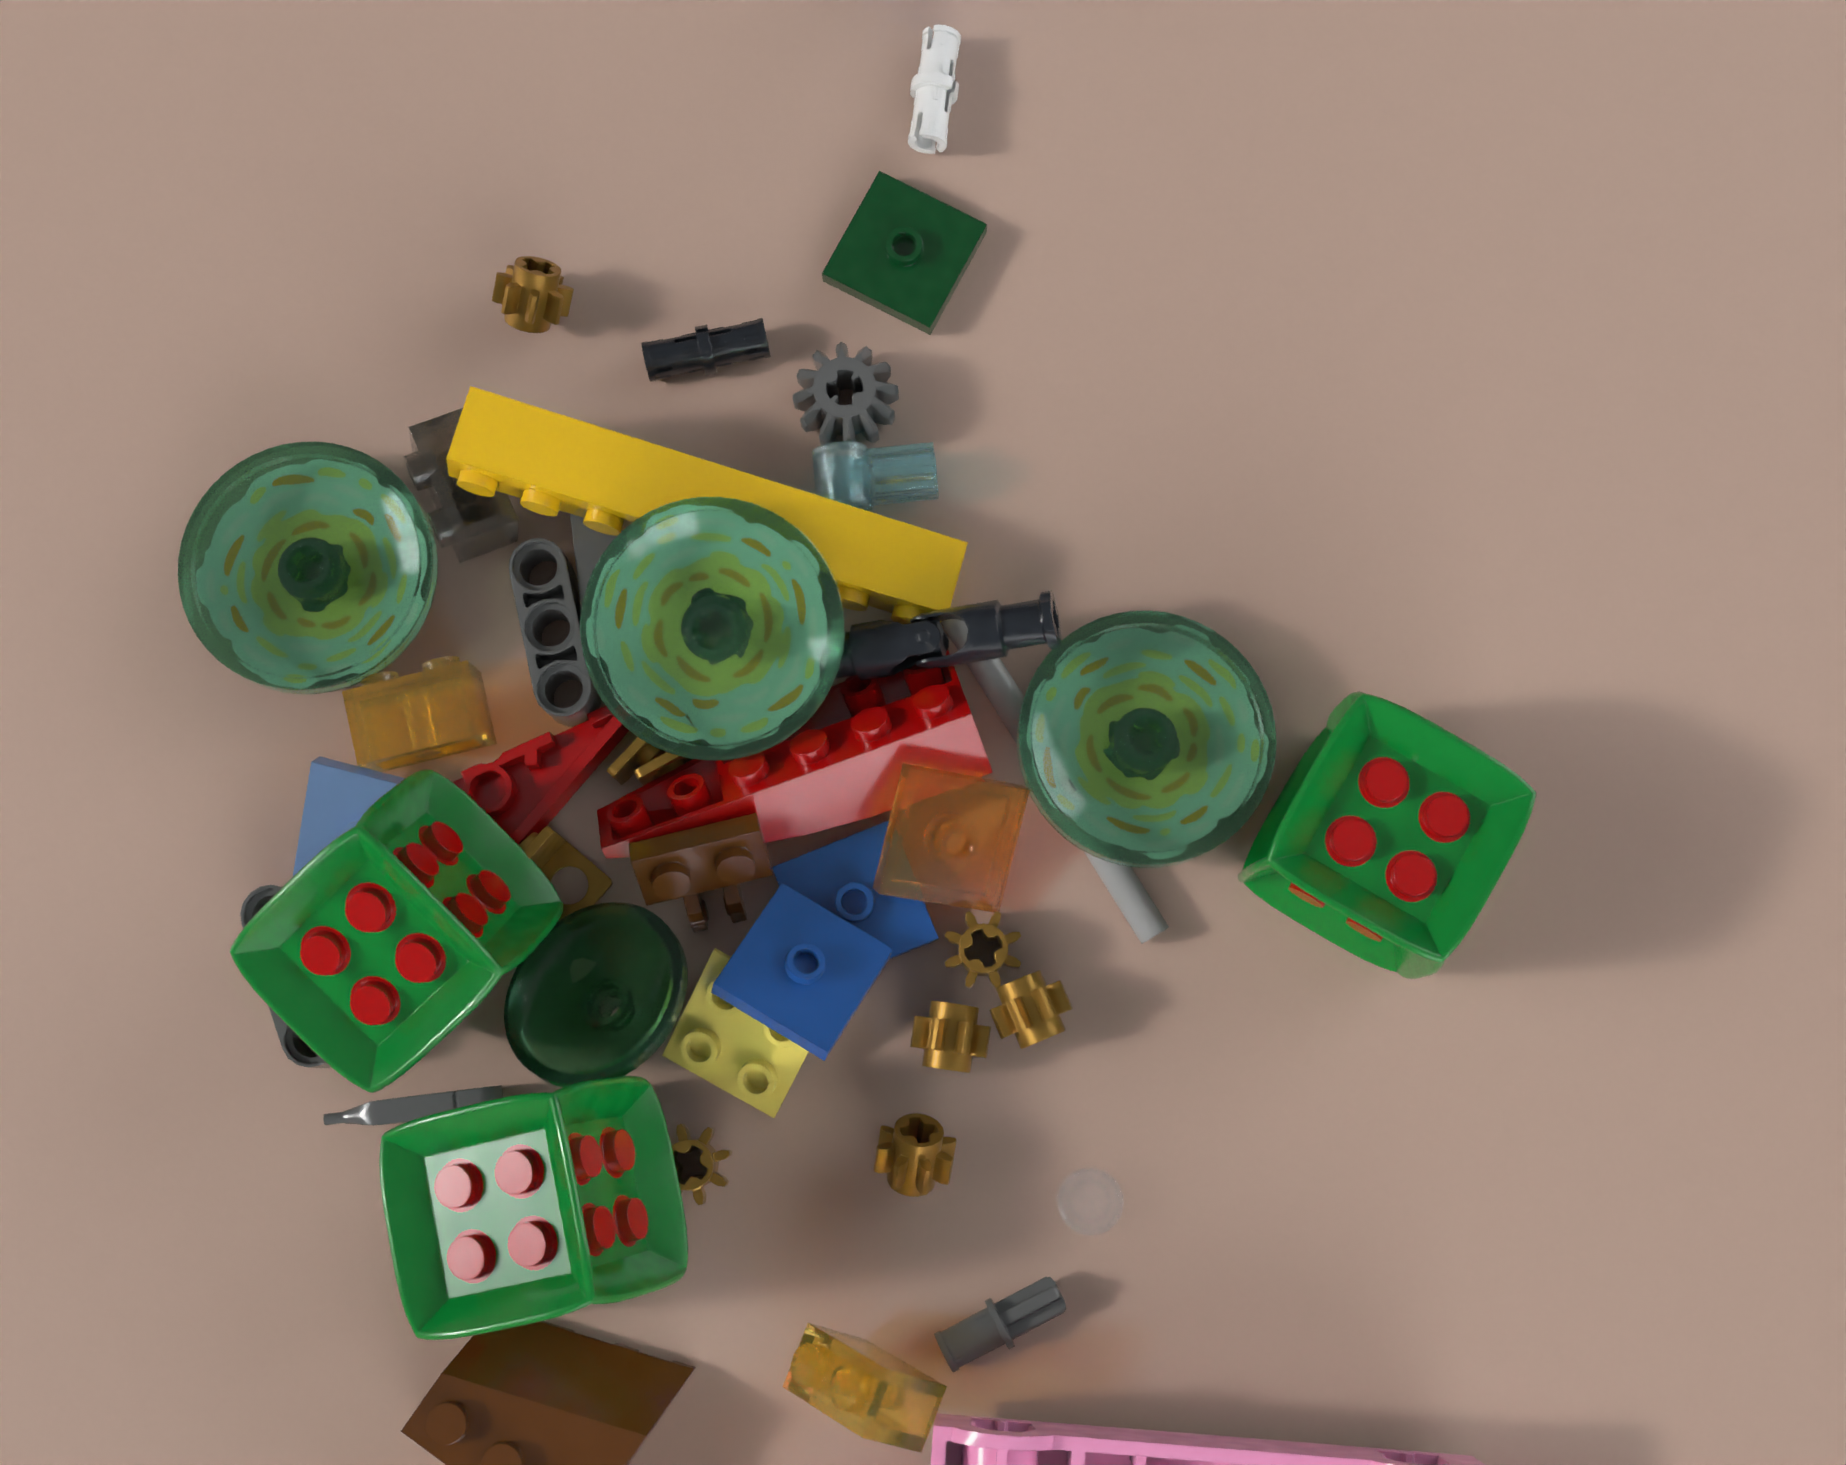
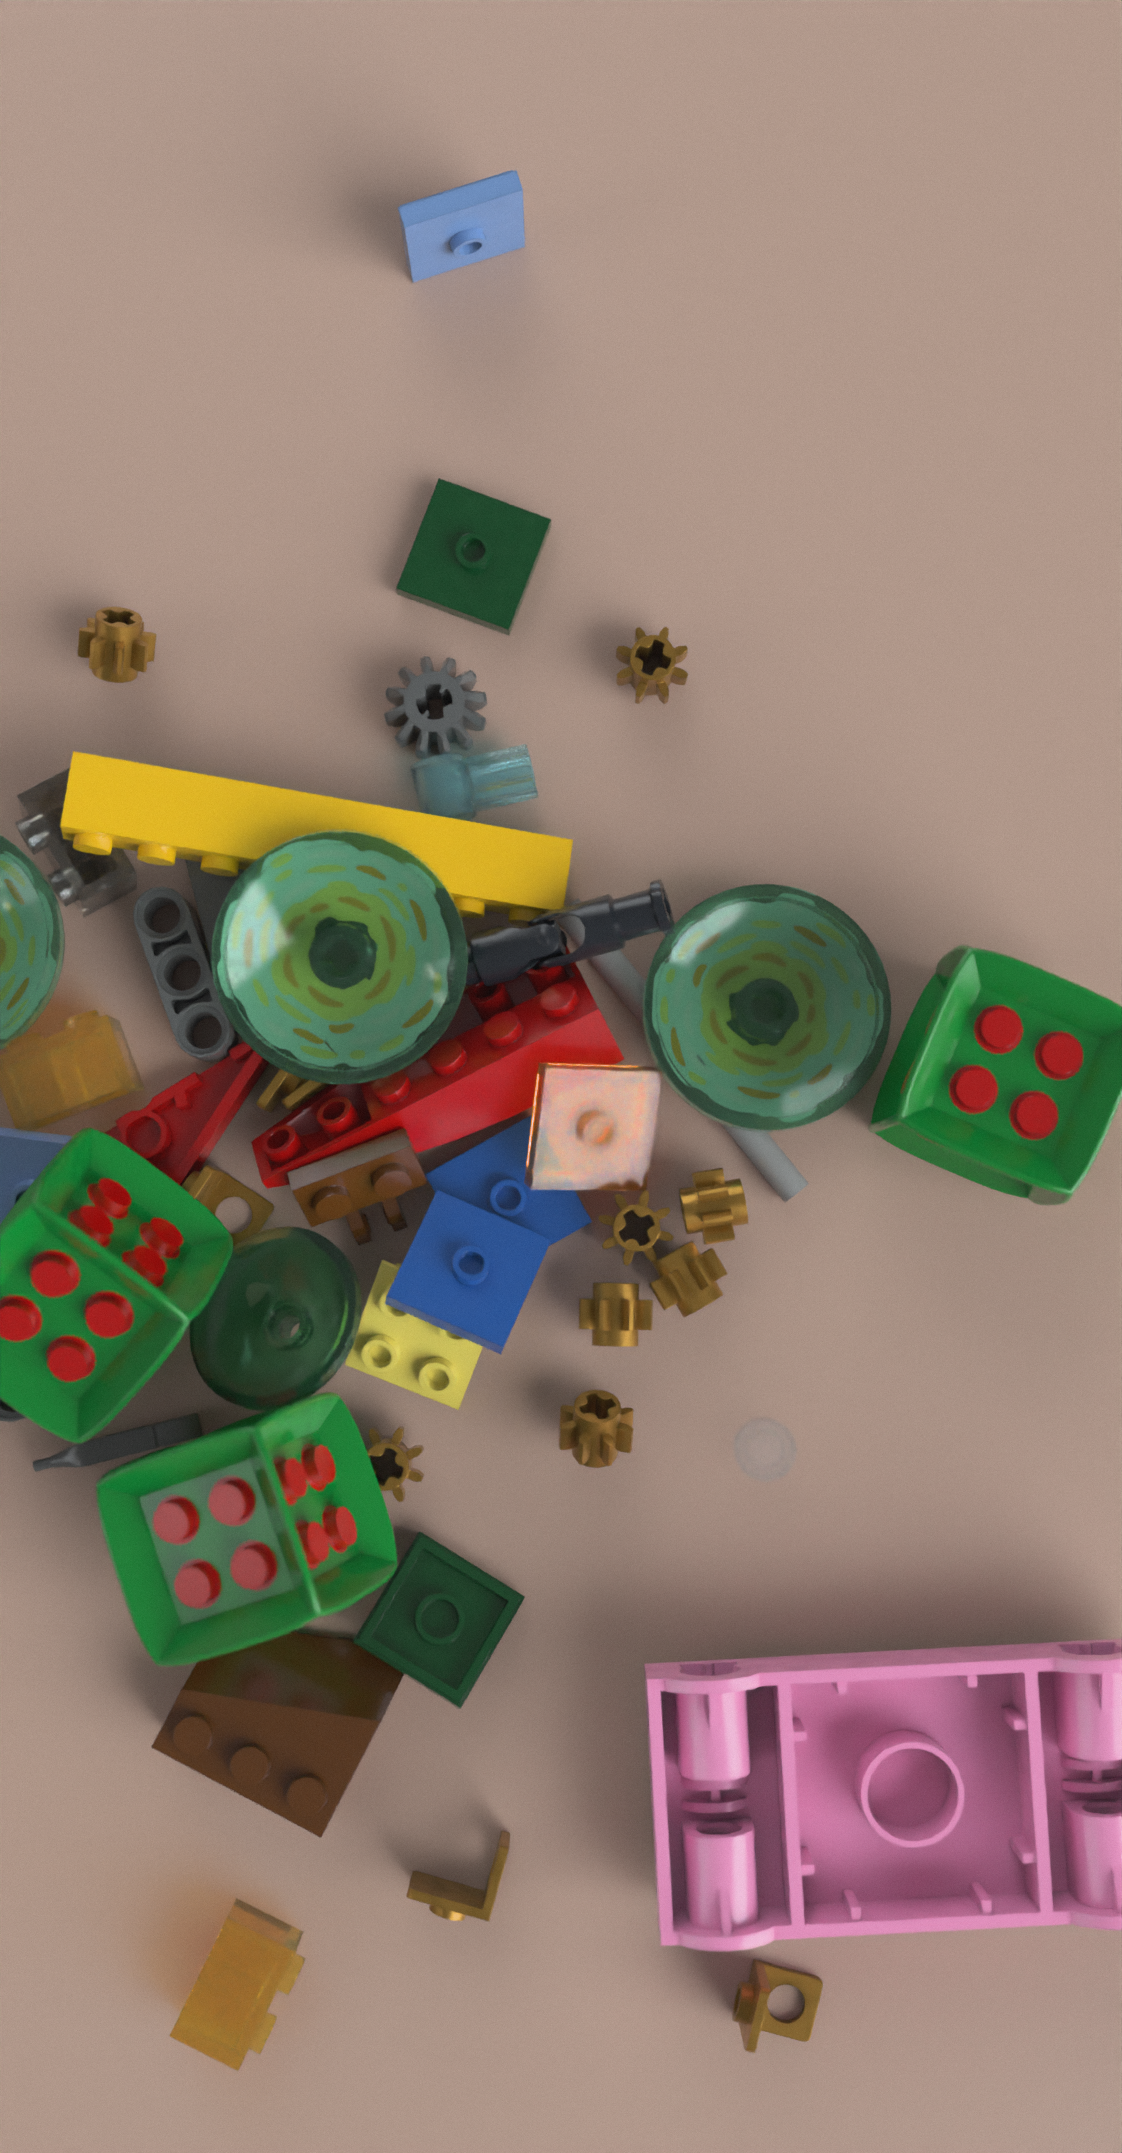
camera: 10 degrees left, 5 degrees up
(705, 349) = (293, 678): black pin -> none
(722, 1337) = (439, 1620): none -> dark green plate
(864, 1388) = (577, 1651): clear yellow brick -> none
(934, 89) = (482, 389): white pin -> none
(1001, 1322) = (695, 1572): dark grey axle -> none
(1066, 937) = (713, 1206): none -> pearl gold gear
(1080, 392) = (640, 654): none -> pearl gold gear

